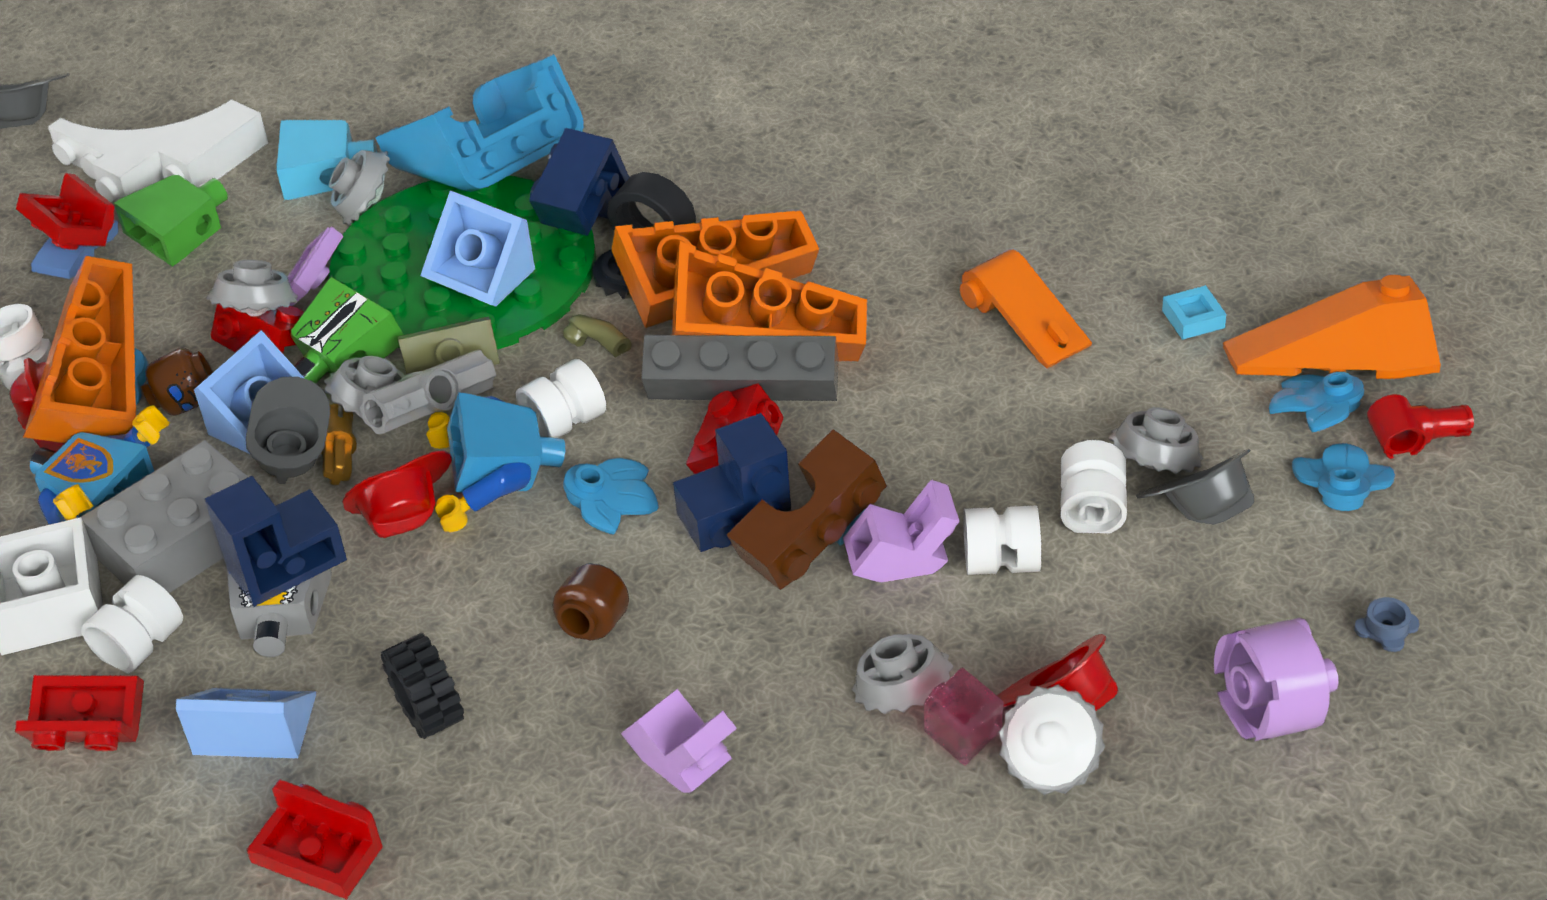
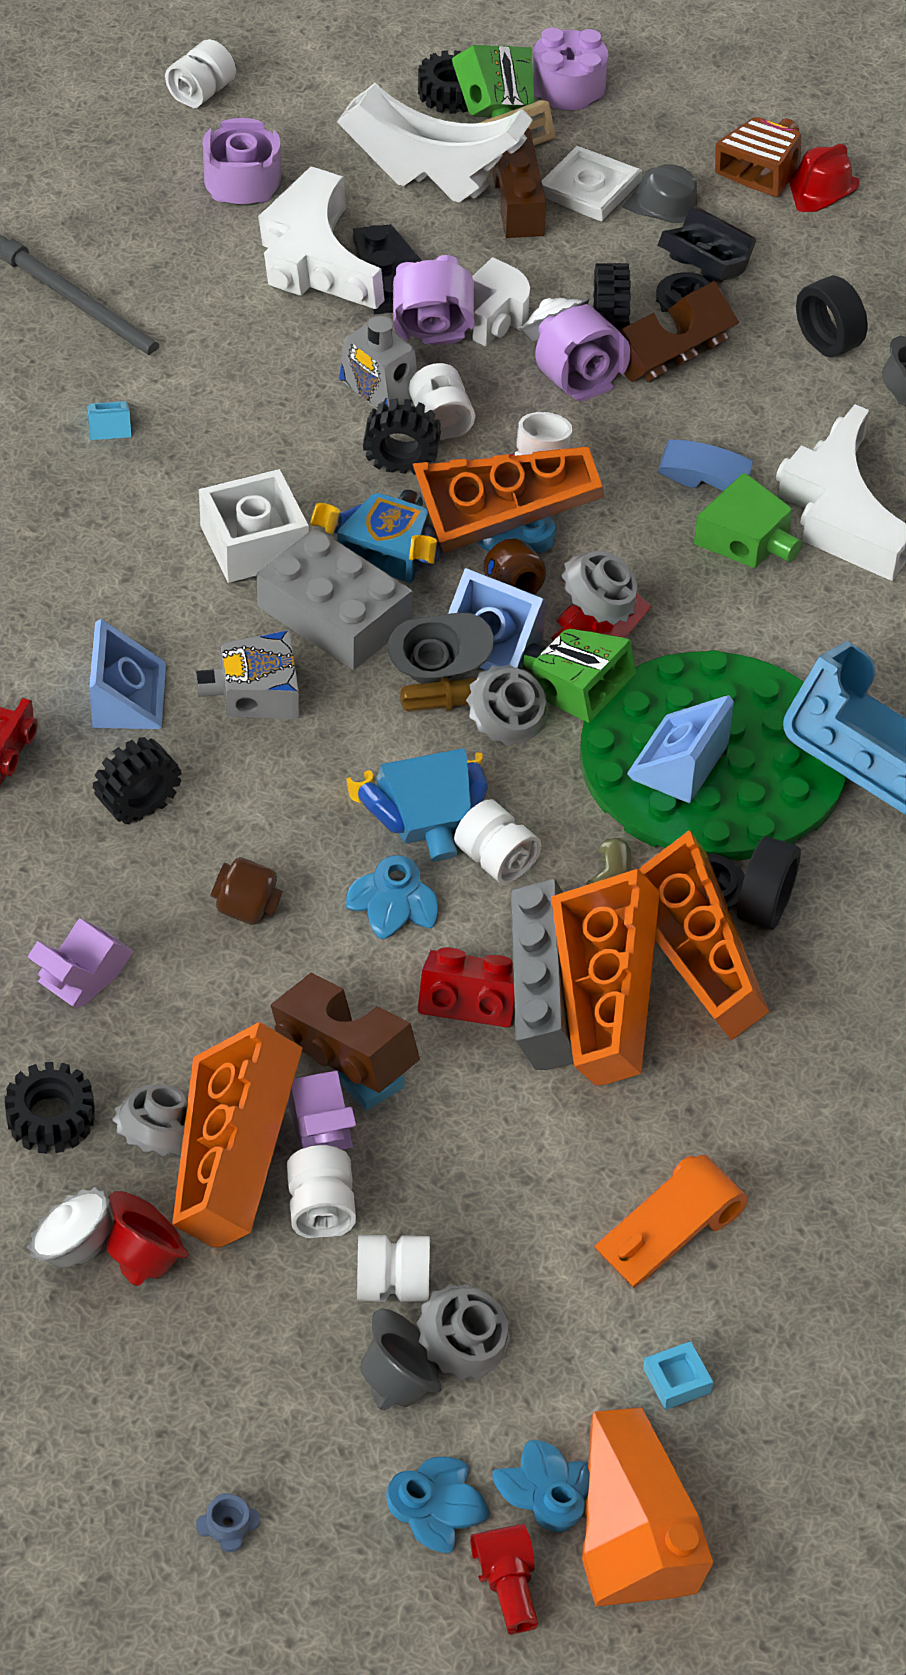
camera: 80 degrees right, 5 degrees up
(71, 218) = (712, 441): red bracket -> none
(82, 710) = (127, 582): red bracket -> none
(125, 631) = (212, 590): white wheel -> none
(273, 545) = (261, 644): dark blue brick -> none
(311, 152) = (851, 610): medium azure torso -> none
(311, 267) = (680, 637): lavender plate -> none
(358, 183) = (796, 647): light grey piece -> none
(399, 497) = (358, 742): red piece -> none
(427, 391) = (518, 758): light grey piece -> none
(444, 343) = (570, 753): olive plate -> none
(578, 182) = (800, 810): dark blue brick -> none
(749, 470) = (378, 974): dark blue brick -> none
(877, 799) = (49, 1130): none -> black tyre
(929, 593) = (231, 1132): none -> orange wedge
(962, 715) = (96, 1155): clear pink brick -> none
(1274, 679) = (129, 1396): lavender brick -> none

